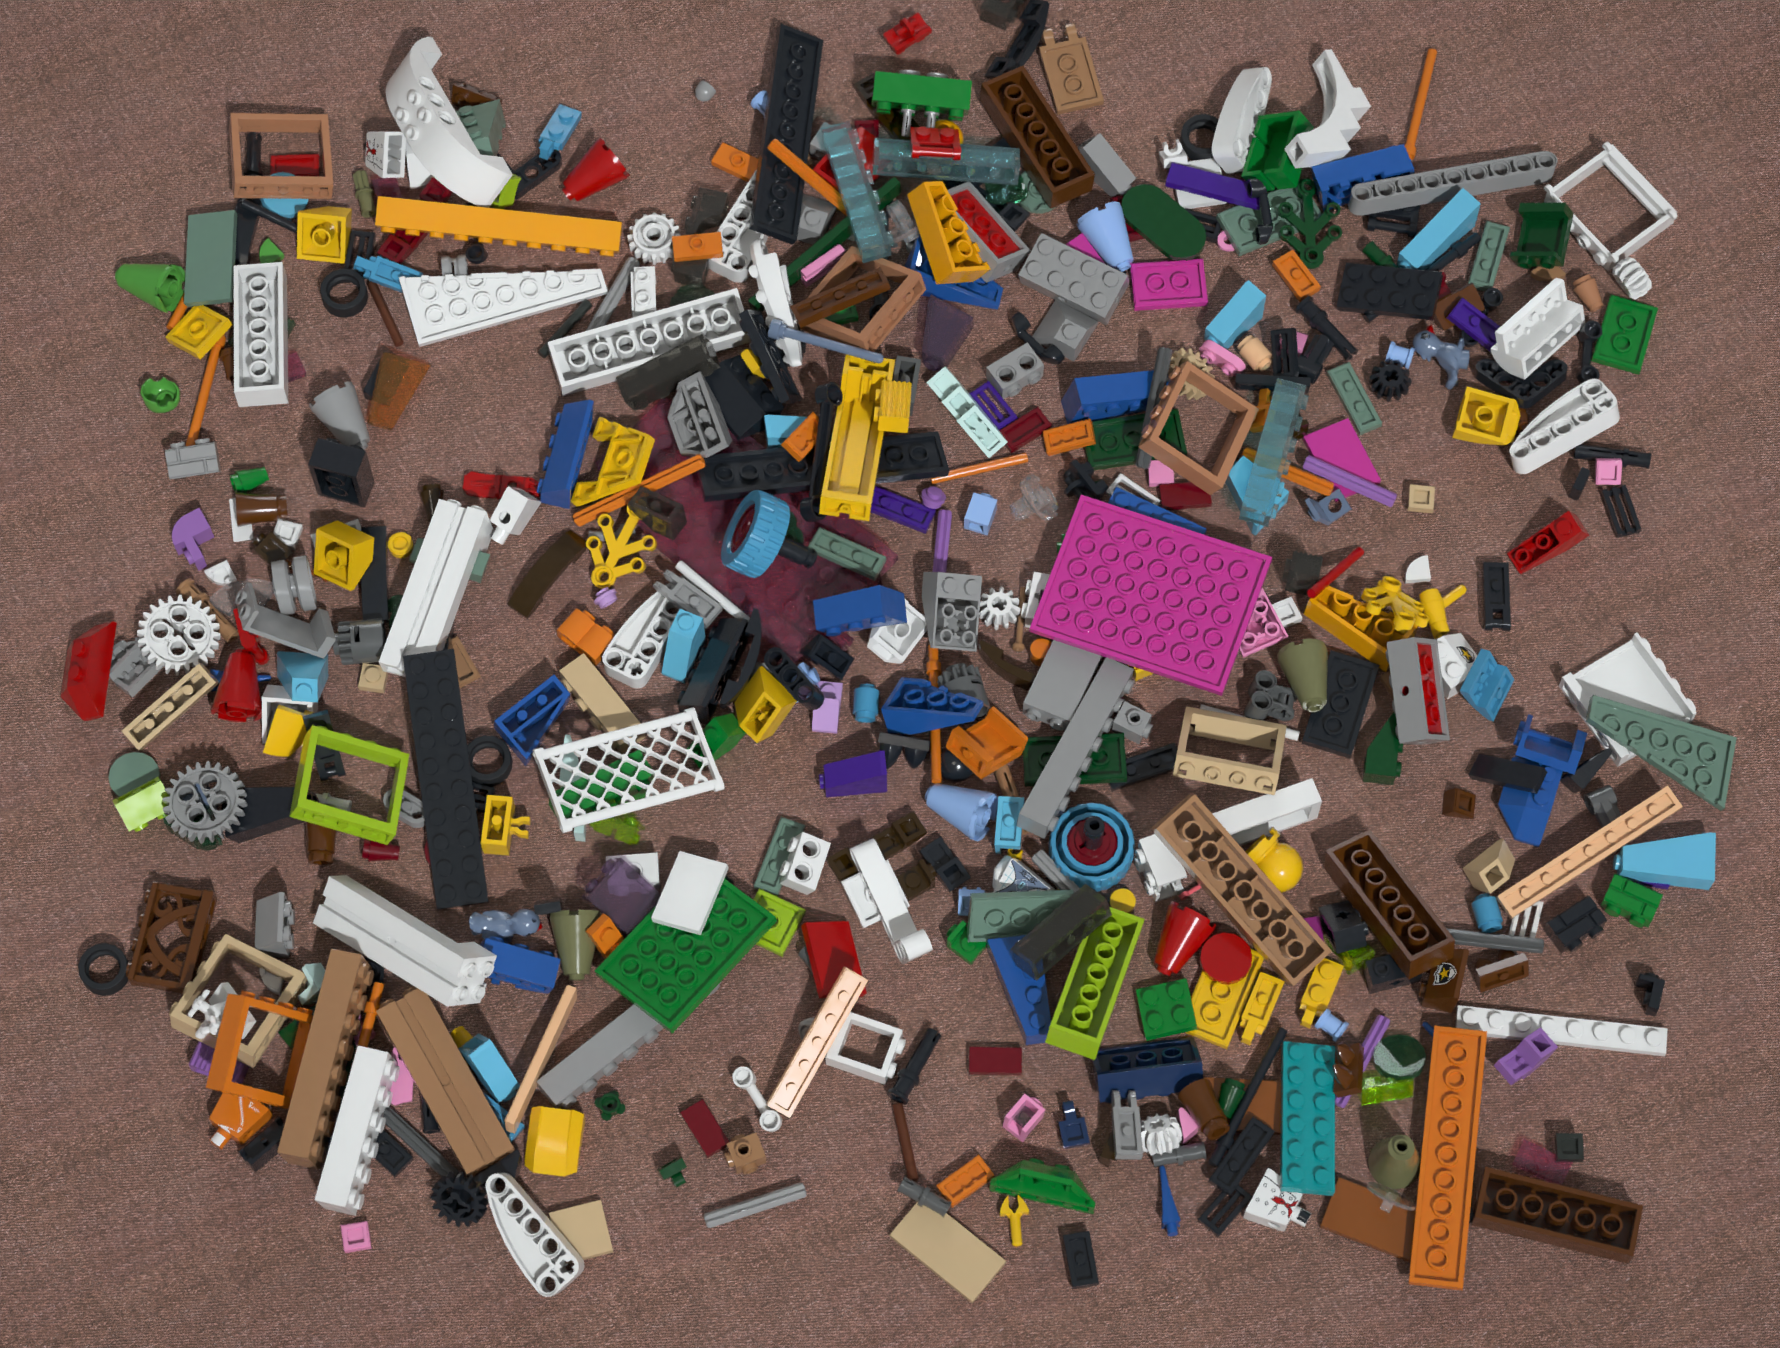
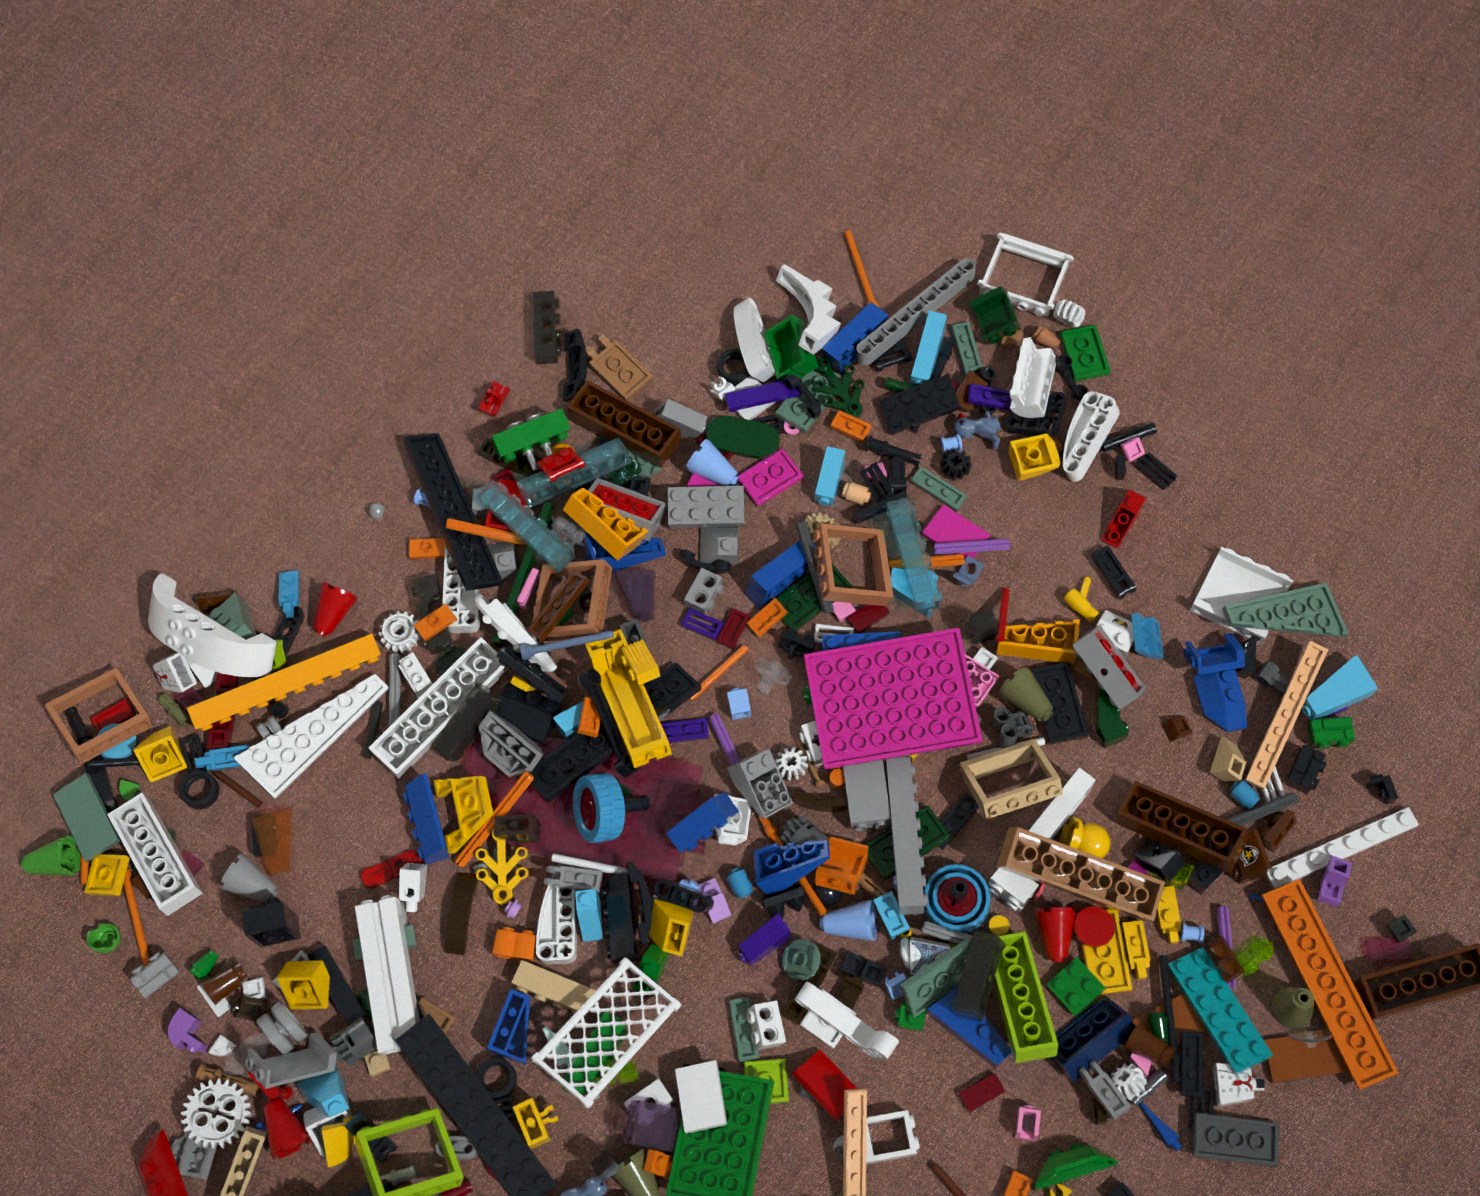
camera: 25 degrees left, 0 degrees up
(400, 545) = (342, 952): yellow tile -> none
(429, 496) = (346, 905): dark brown cone -> none
(827, 656) = (695, 865): black slope -> none
(847, 553) = (667, 784): sand green tile -> none
(883, 817) = (801, 959): none -> sand green tile
(909, 1076) = (930, 1140): black pin -> none
(933, 497) = (699, 710): medium lavender plate -> none
(967, 412) = (688, 637): light aqua slope -> none
(1073, 1129) = (1066, 1112): dark blue plate -> none
(1133, 723) = (930, 794): light grey brick -> none
(1221, 357) = (838, 508): bright pink plate -> none
(1240, 1259) = (1235, 1139): none -> dark grey tile
(1263, 406) = (884, 524): orange plate -> none
(1399, 1057) = (1251, 930): clear green tile -> none
(1404, 614) = (1042, 604): yellow plant -> none
(1418, 571) = (1052, 582): white tile -> none
(1421, 498) = (1024, 533): tan plate -> none
(1507, 773) = (1199, 690): black tile -> none

